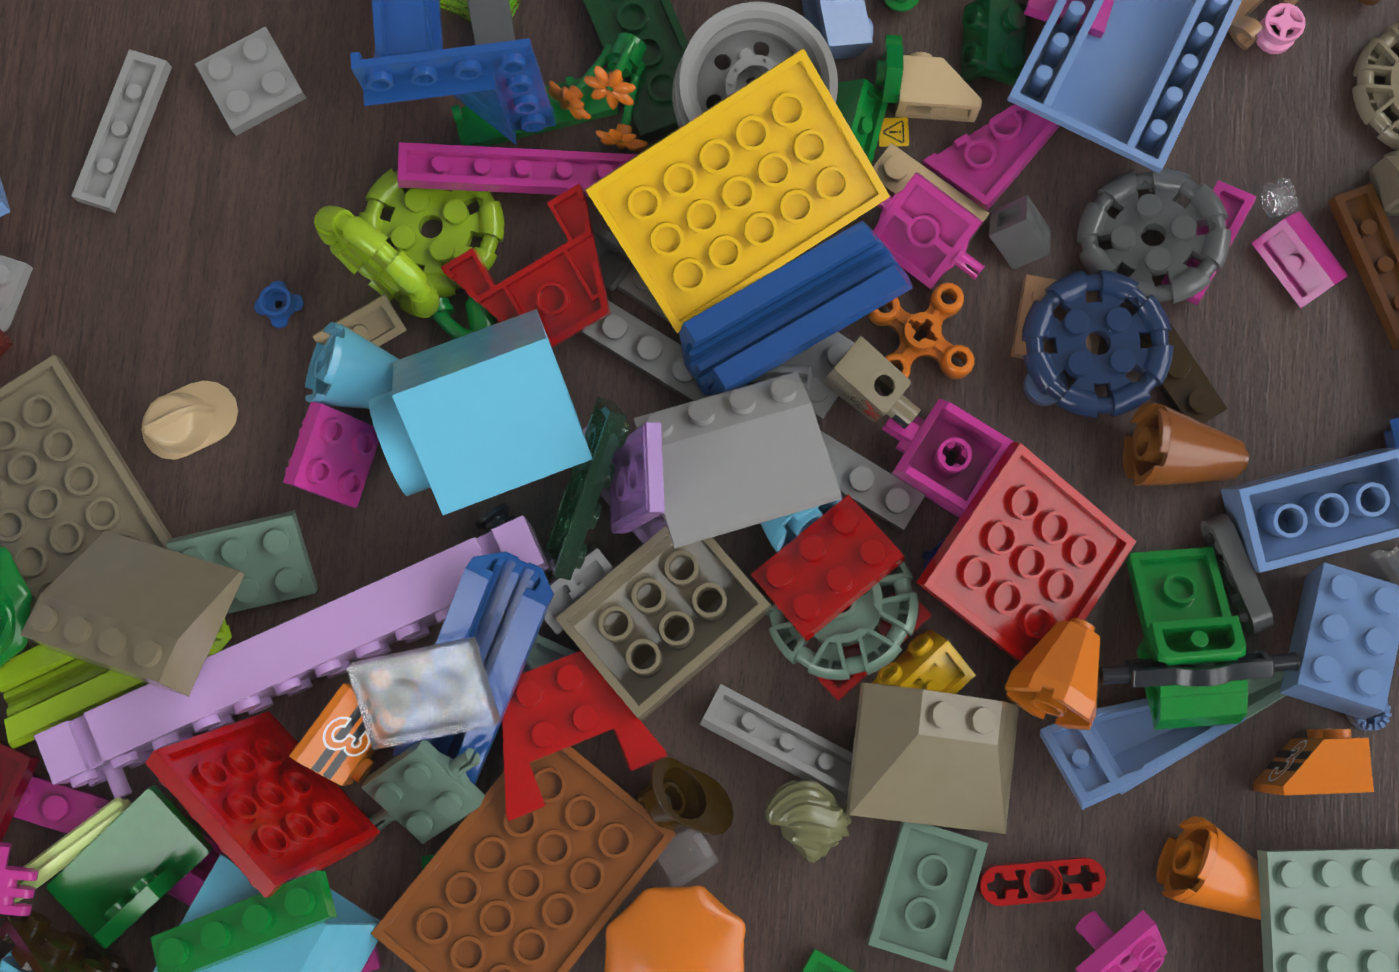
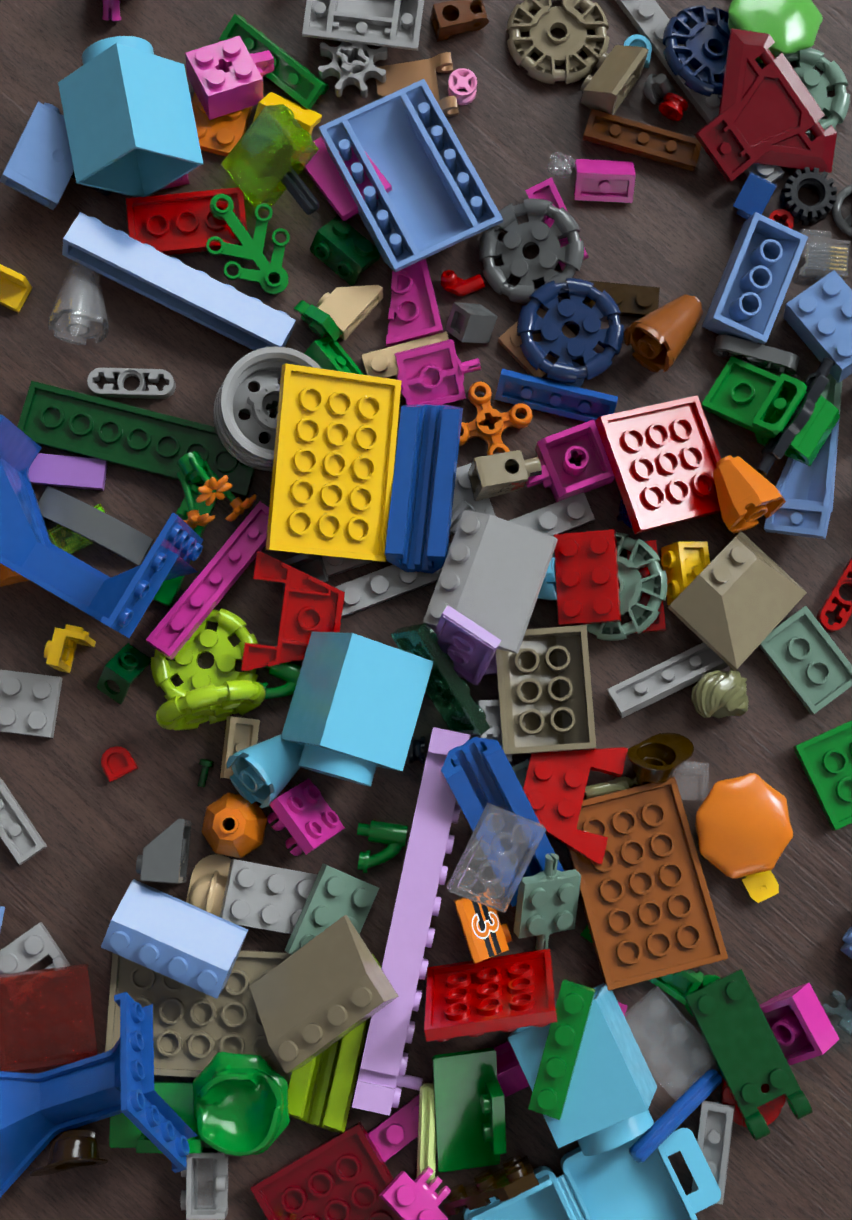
camera: 60 degrees left, 0 degrees up
(93, 411) = (174, 938): none -> slope
(183, 339) = (167, 855): none -> dark grey slope
(215, 474) = (265, 896): none -> light grey plate
(255, 219) = (117, 763): none -> red tile
(267, 304) = (191, 789): blue plate -> none
(271, 388) = (248, 829): none -> orange cone
(319, 311) = (206, 764): none -> dark green piece
(327, 69) = (62, 647): none -> yellow bracket
(356, 149) = (123, 671): none -> dark green bracket
(376, 549) = (383, 833): none -> green plant
(610, 767) = (614, 785): none -> olive piece
(894, 131) = (354, 347): yellow sticker -> none
(1007, 381) = (554, 396): none -> blue plate
(1051, 190) = (459, 286): none -> red arm

